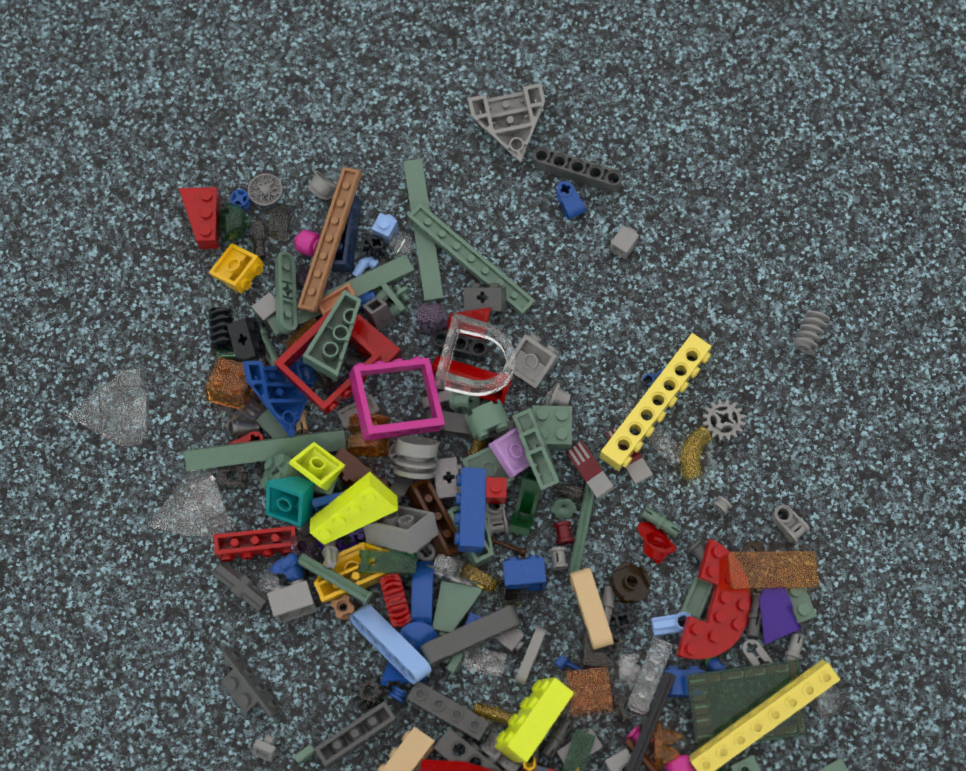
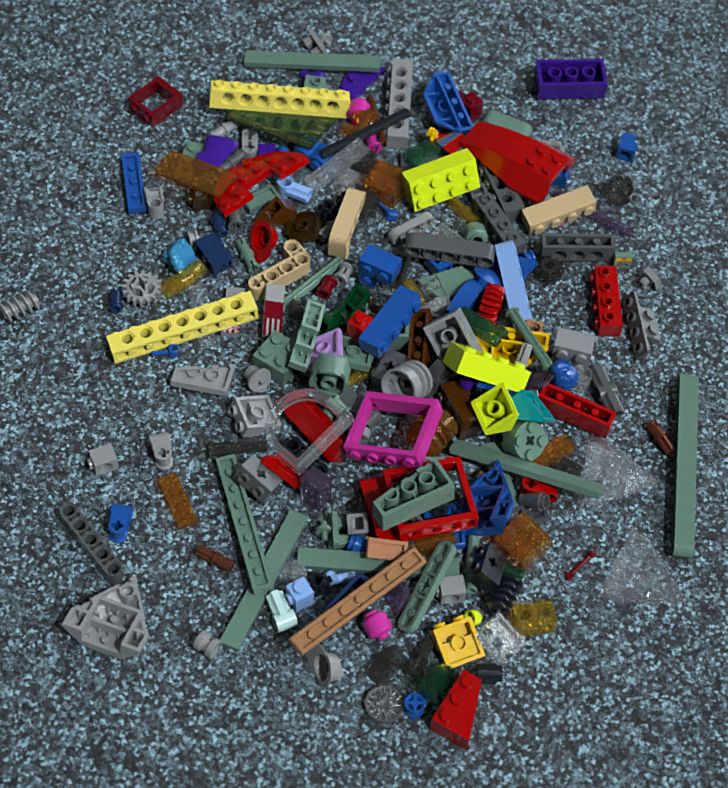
camera: 155 degrees left, 15 degrees down
(133, 558) = (685, 467): none -> sand green beam
(167, 570) = (660, 437): none -> copper axle
(180, 388) = (569, 575): none -> dark red hinge
(183, 322) = (535, 623): none -> clear yellow brick
(198, 258) = (488, 672): none -> black brick
(202, 294) = (504, 634): none -> clear plate
(237, 298) = (475, 615): none -> neon yellow hinge
(255, 494) = (555, 451): none -> clear orange tile
(294, 692) = (606, 301): none -> red brick
(386, 205) = (282, 615): none -> light aqua piece
(432, 149) = (207, 644): none -> light grey wheel
(464, 686) = (475, 232): none -> sand green head
(473, 220) = (215, 558): none -> copper axle
(533, 318) = (228, 448): none -> clear smoke pin
(540, 250) = (177, 501): none -> clear orange tile
(587, 282) = (162, 451): none -> light grey piece
(600, 369) = (207, 380): none -> light grey wing
(617, 517) = (294, 266): none -> tan beam
(666, 581) = (277, 212): none -> reddish brown arch
(689, 500) = (213, 253): none -> dark blue hinge
(706, 534) = (218, 222): none -> dark blue pin
(718, 473) = (179, 255): none -> dark azure hair
(732, 657) = (266, 148): none -> dark purple tile
(736, 395) = (116, 301): none -> dark blue pin
(826, 532) = (133, 183): none -> blue plate
(881, 661) = (173, 102): none -> dark red window

